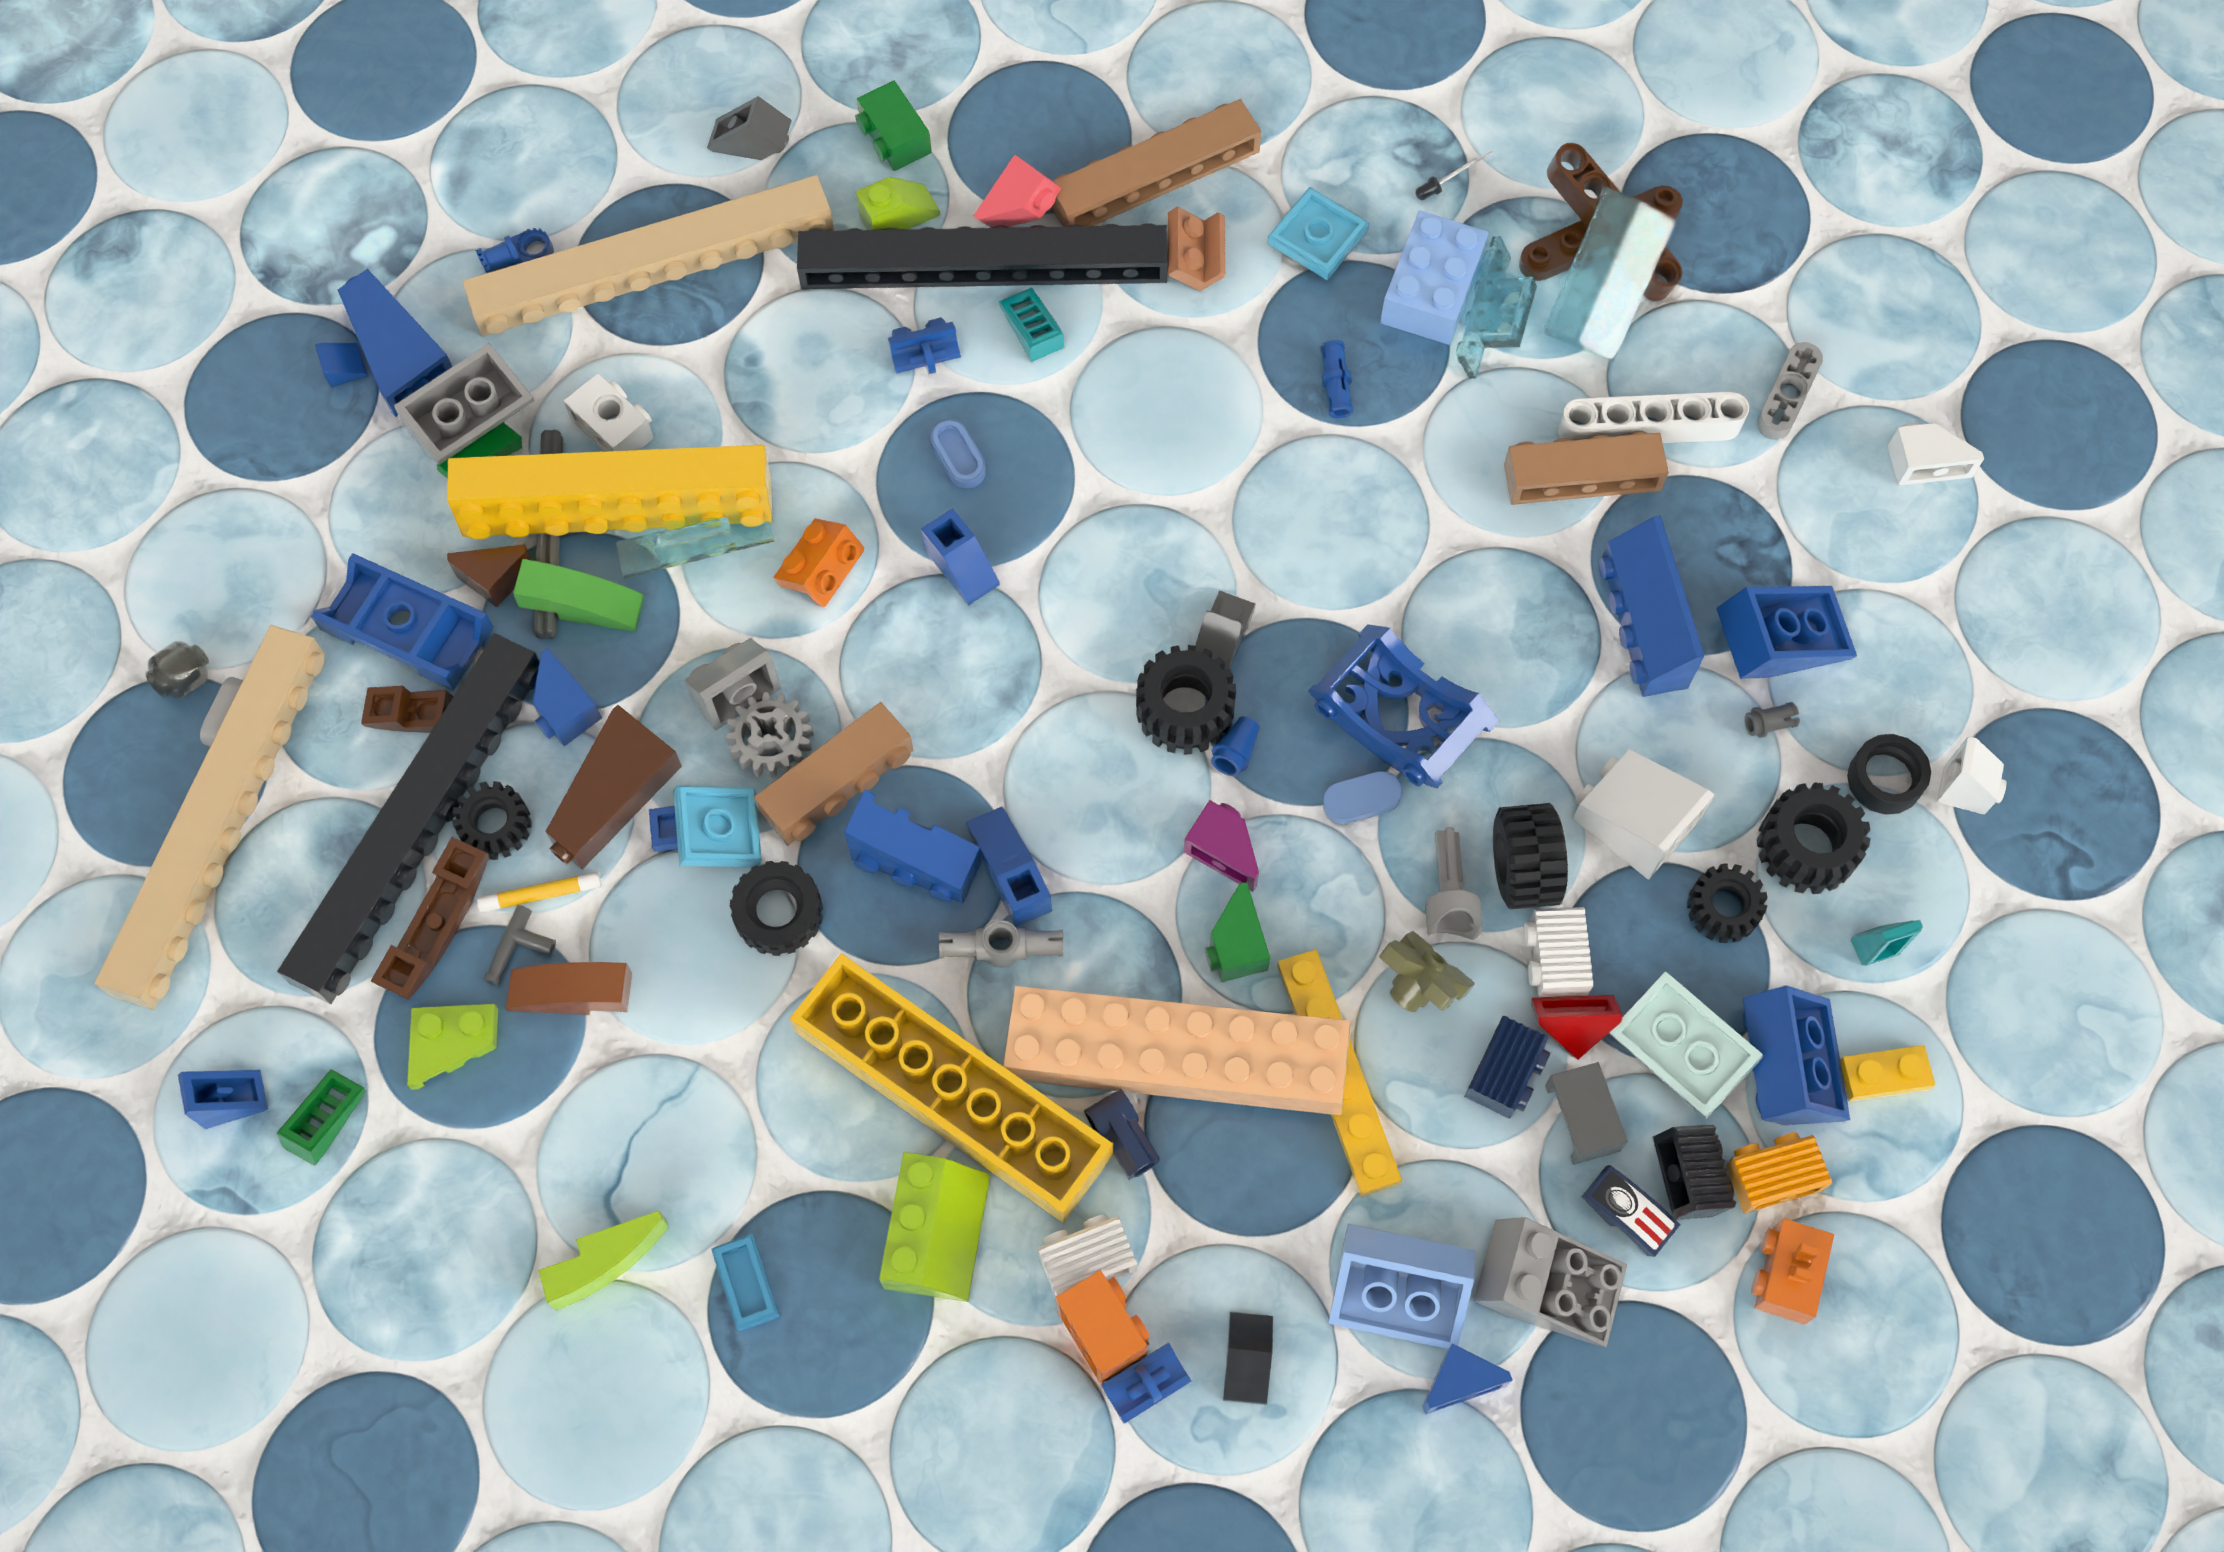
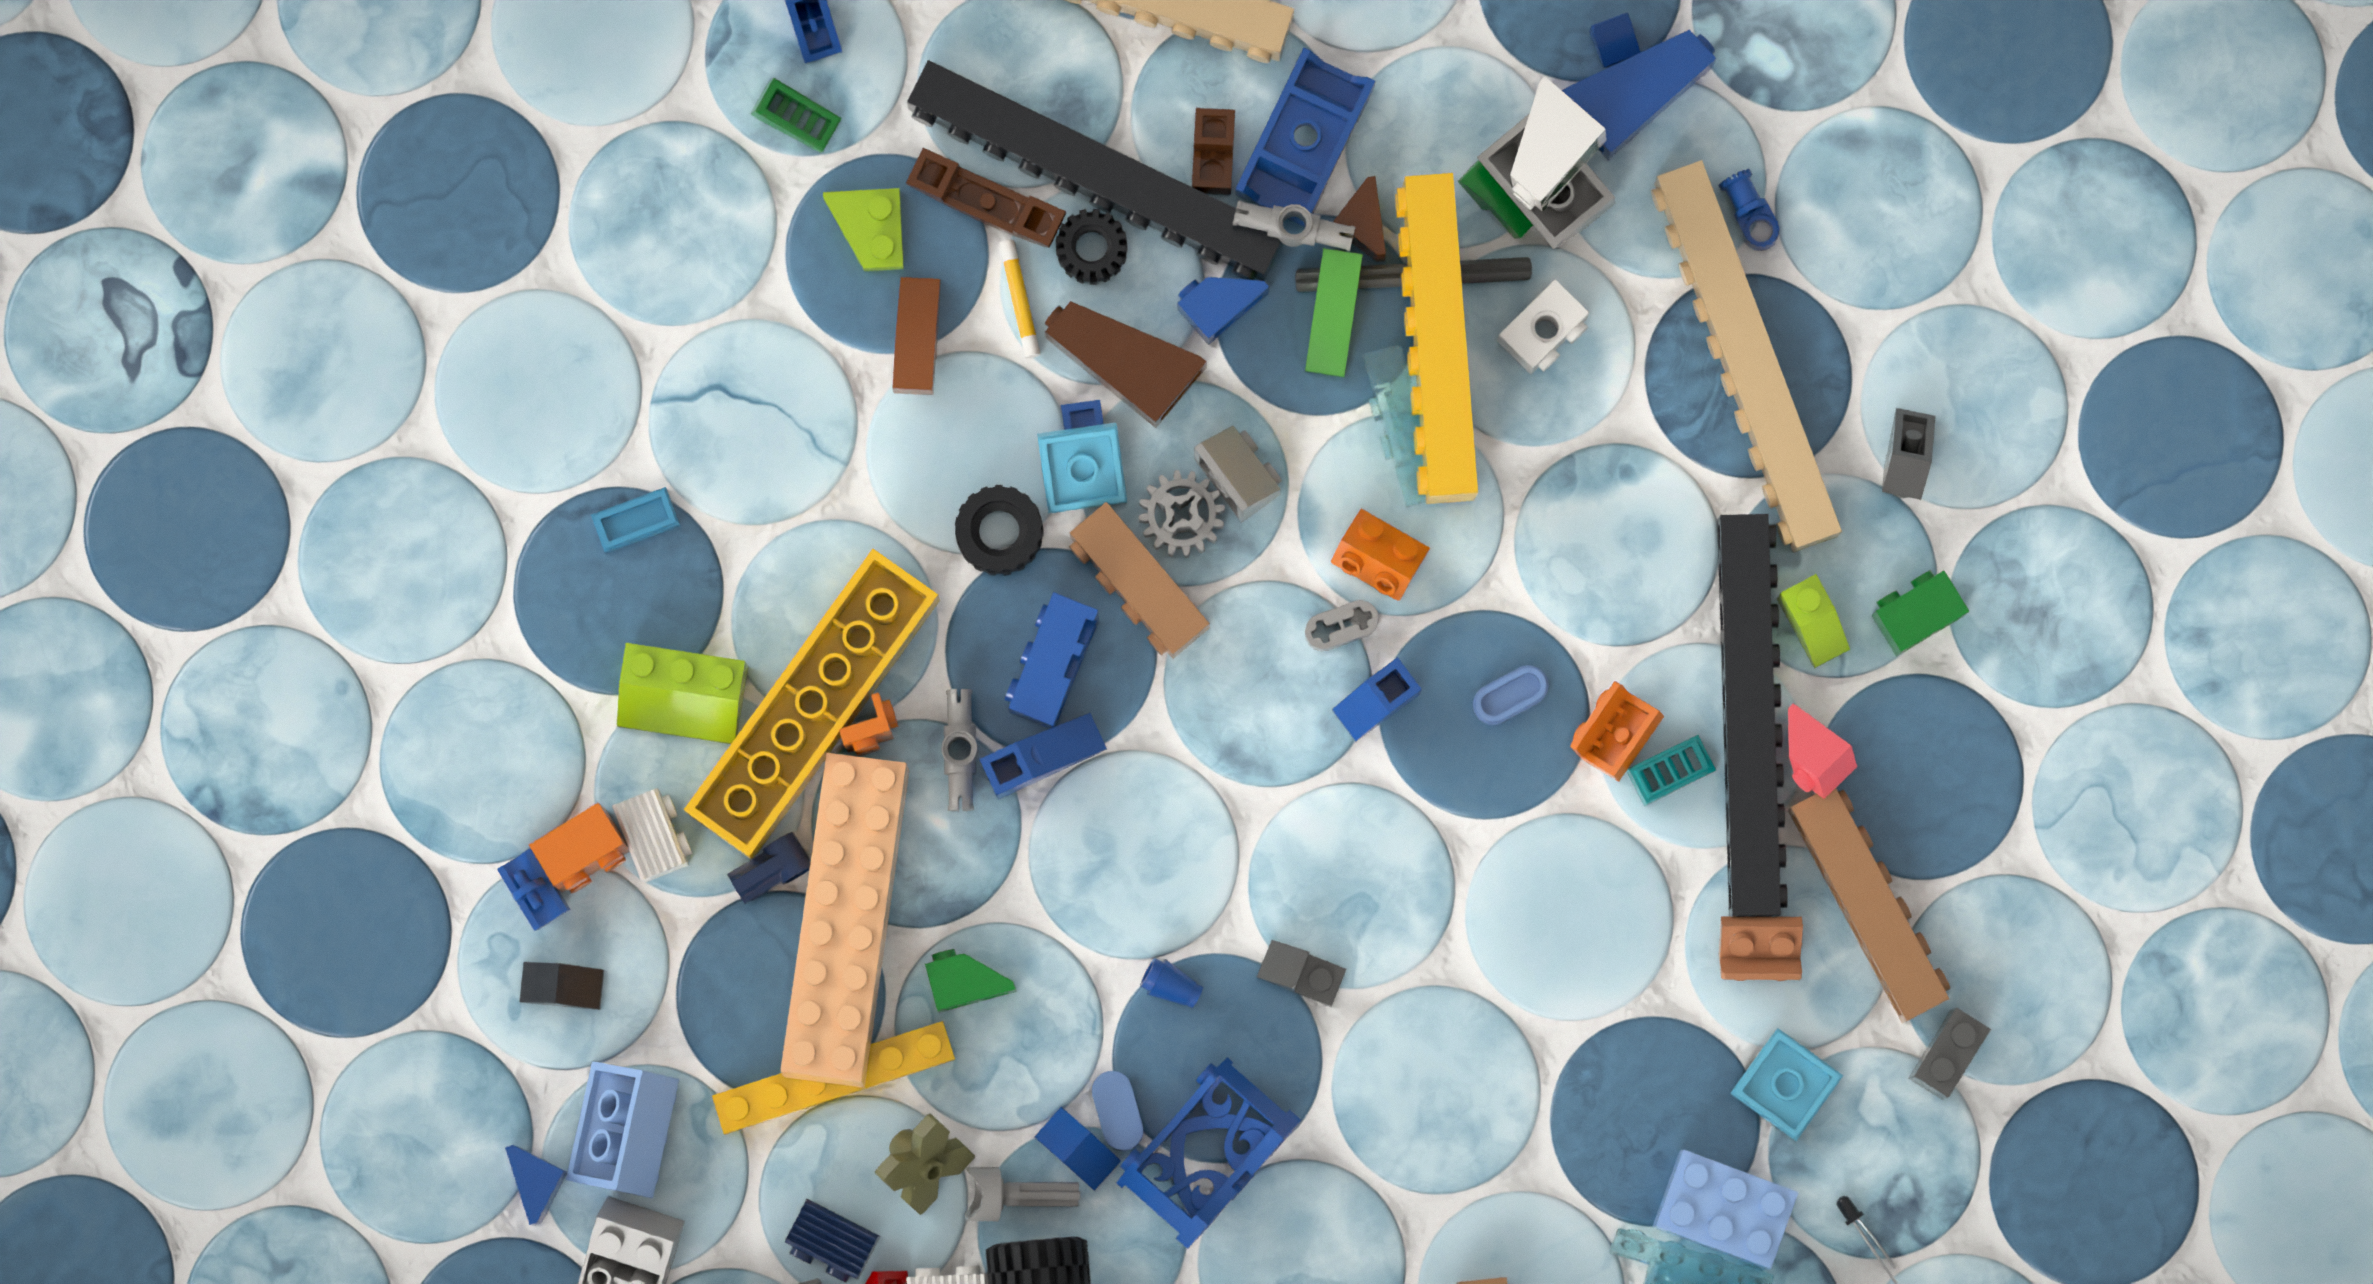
camera: 90 degrees right, 15 degrees up
(429, 376) = (1553, 146): none -> white slope
(482, 633) = (1272, 221): none -> light grey pin
(513, 935) = (974, 281): dark grey piece -> none
(601, 1259) = (653, 385): lime slope -> none
(879, 598) = (1338, 616): none -> light grey beam
(924, 346) = (1630, 654): blue hips -> none
(970, 1011) = (866, 735): none -> orange bracket
(996, 360) = (1615, 731): none -> orange bracket
(1192, 671) = (1205, 897): black tyre -> none
(1223, 844) = (1064, 969): magenta slope -> none
(1288, 106) = (1949, 1053): none -> dark grey brick
(1336, 379) = (1601, 1099): blue pin -> none
(1399, 835) = (1077, 1148): none -> blue slope

